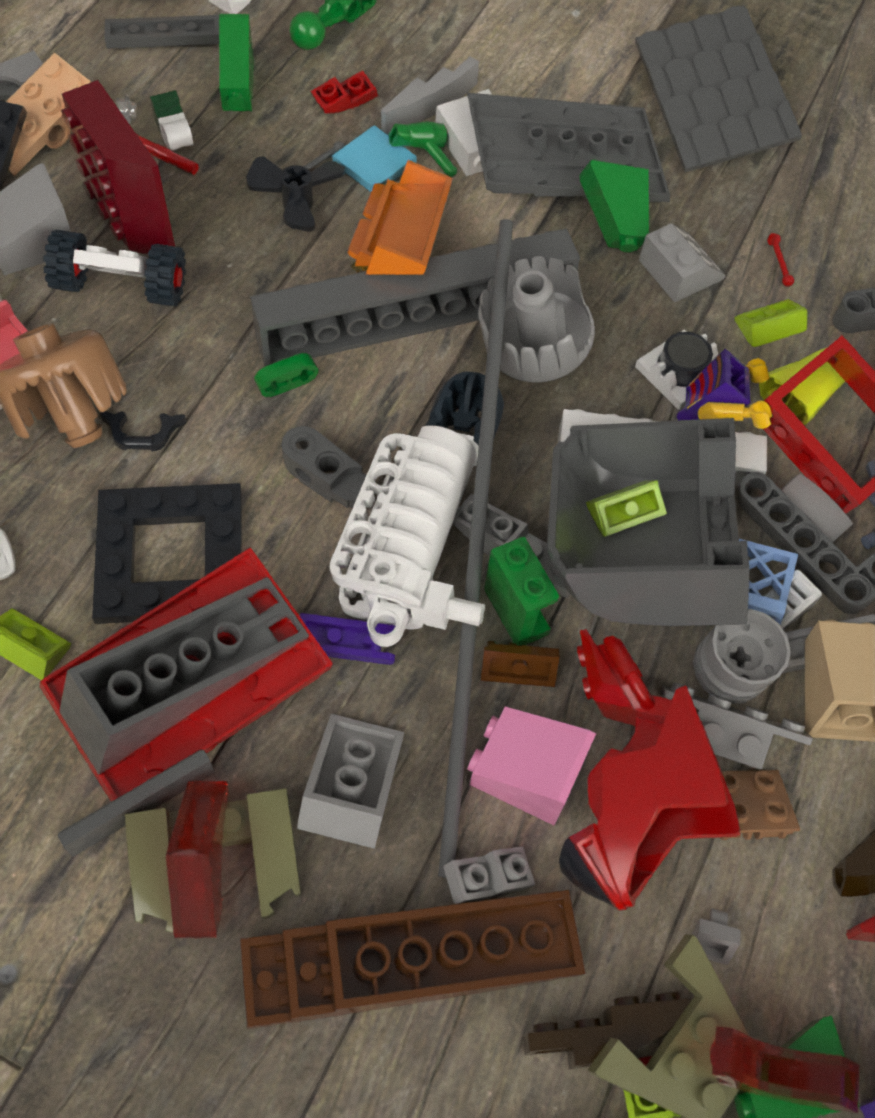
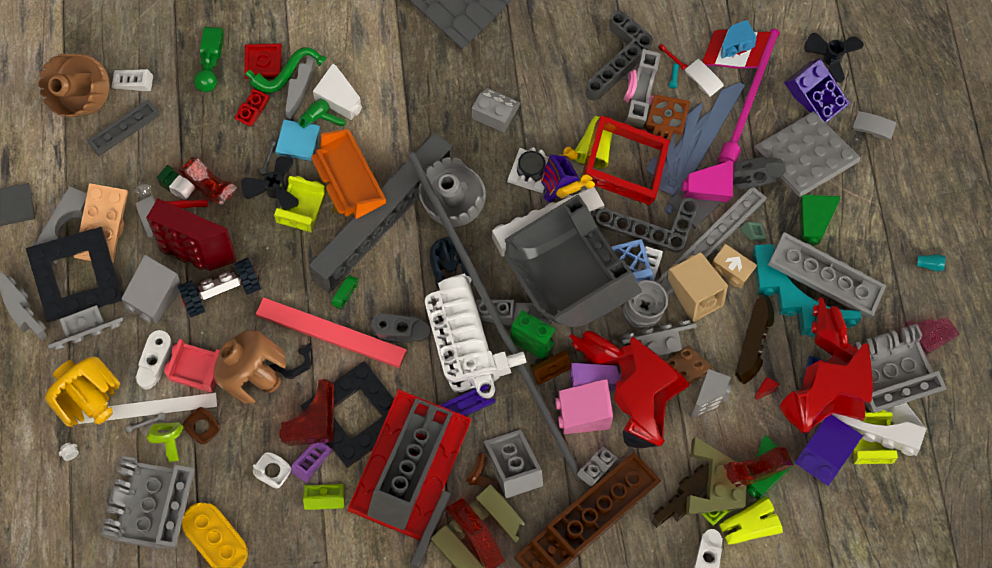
camera: 30 degrees left, 5 degrees up
(54, 587) = (305, 471): none -> medium lavender slope
(97, 520) = (315, 423): none -> clear red arch
(211, 137) = (206, 181): none -> clear red arch
(228, 423) = (331, 332): none -> coral tile
(235, 62) = (185, 127): green slope -> none
(279, 754) = (475, 476): none -> reddish brown piece
(315, 249) = (310, 201): none -> neon yellow panel
(395, 82) = (272, 86): none -> green animal
(401, 52) = (263, 59): none -> red tile
(548, 143) = (396, 75): dark grey piece -> none
(570, 705) = (587, 373): none -> medium lavender slope
(619, 202) = (446, 96): green slope -> none
(627, 507) = (552, 263): lime slope -> none
(716, 937) = (704, 432): light grey tile -> none
(772, 322) = (558, 116): lime slope -> none
(774, 240) = (532, 66): red hinge -> none
(775, 874) = (712, 392): none -> light grey slope
(817, 506) = (636, 209): light grey slope -> none

